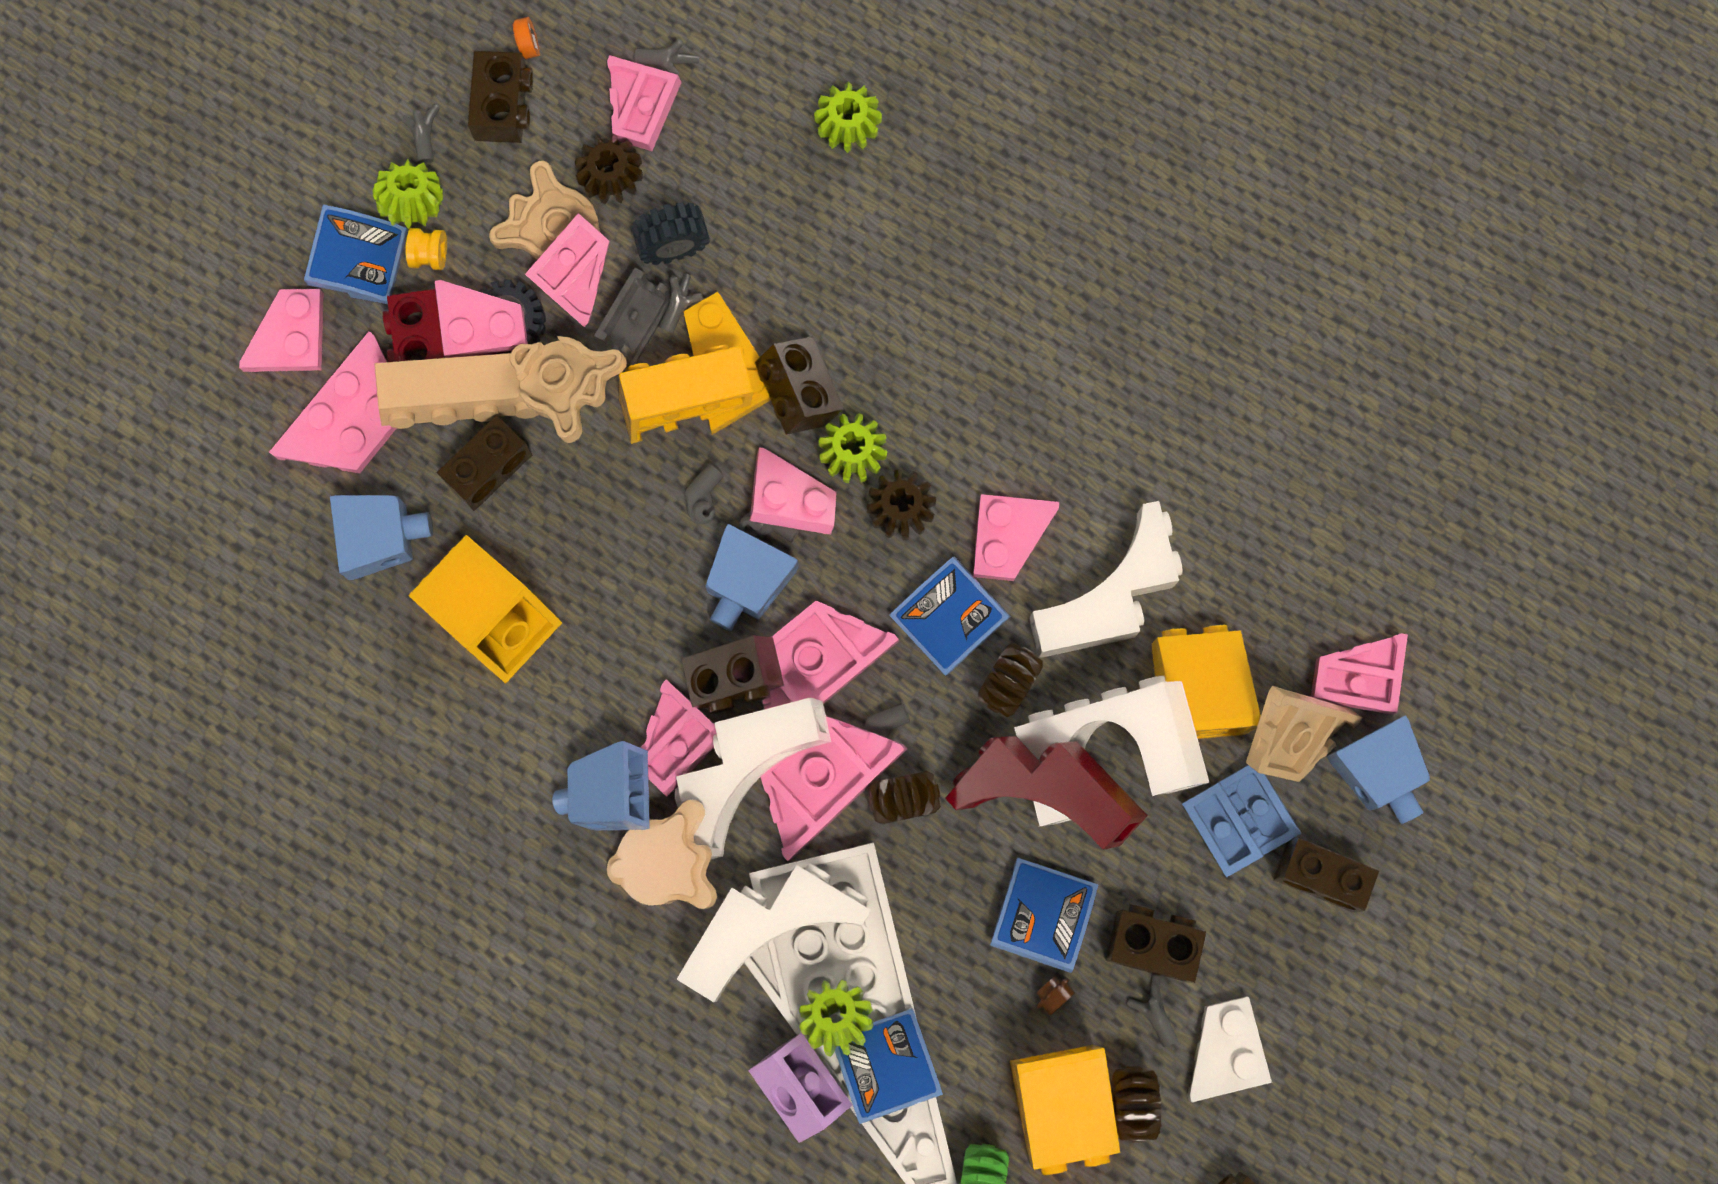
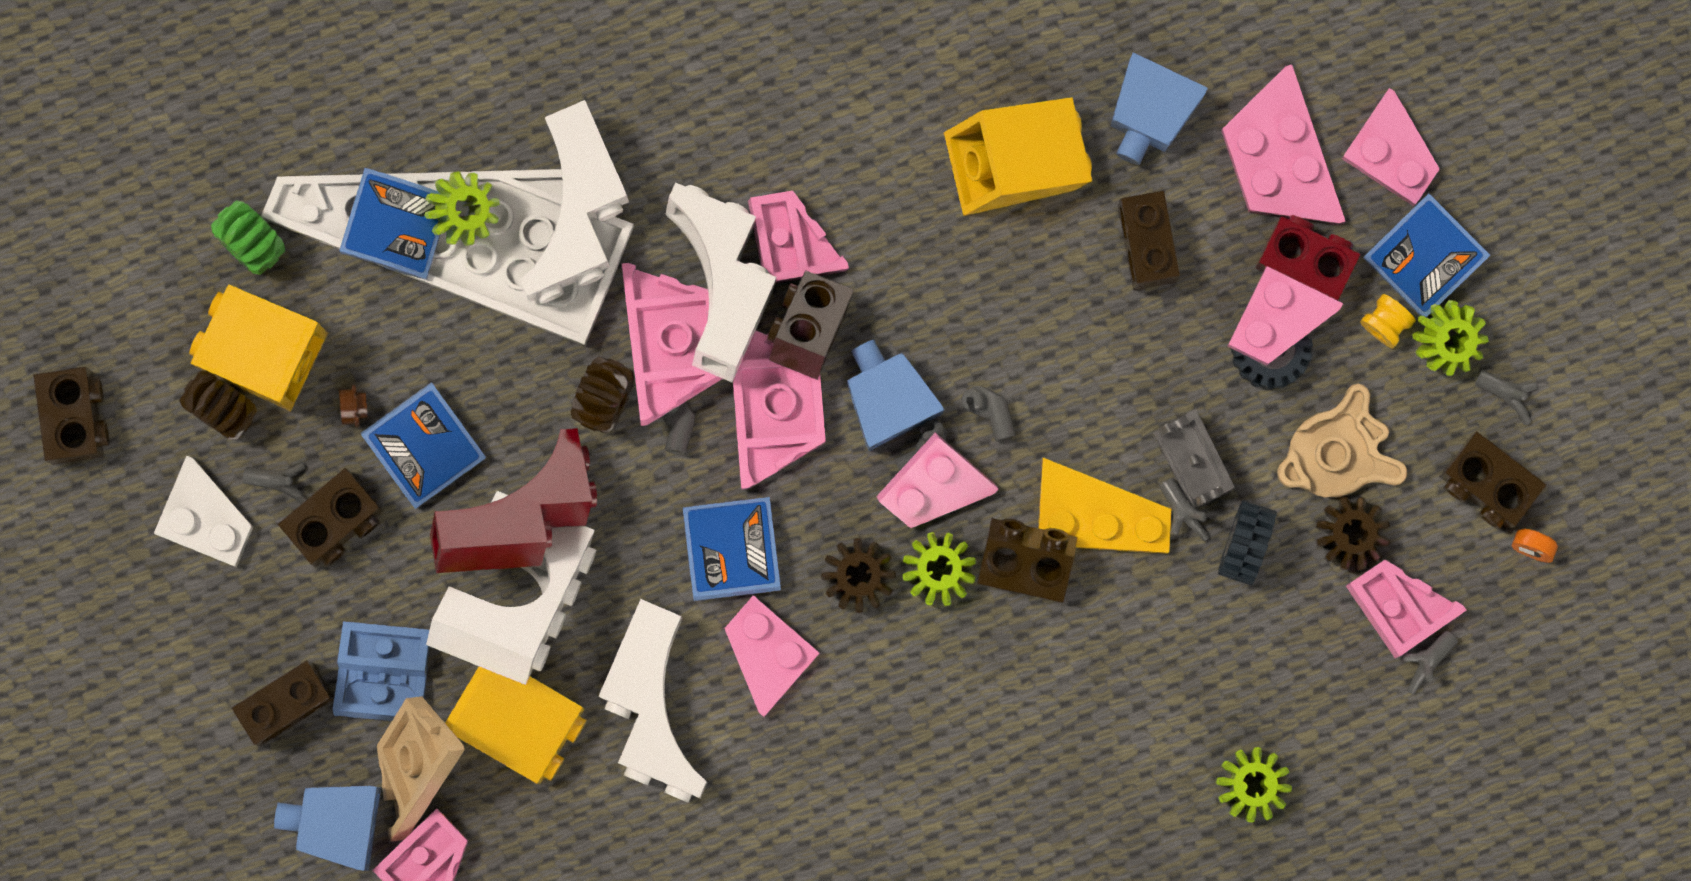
camera: 125 degrees right, 5 degrees up
(448, 390) = (1227, 262): tan brick -> none
(562, 379) = (1166, 350): tan tile -> none
(573, 268) = (1277, 435): bright pink wing -> none
(607, 789) = (785, 152): medium blue torso -> none
(665, 862) = (691, 156): tan tile -> none
(683, 389) = (1090, 453): yellow wedge -> none
(800, 1088) = (428, 143): lavender brick -> none
(1010, 679) = (637, 556): dark brown gear -> none

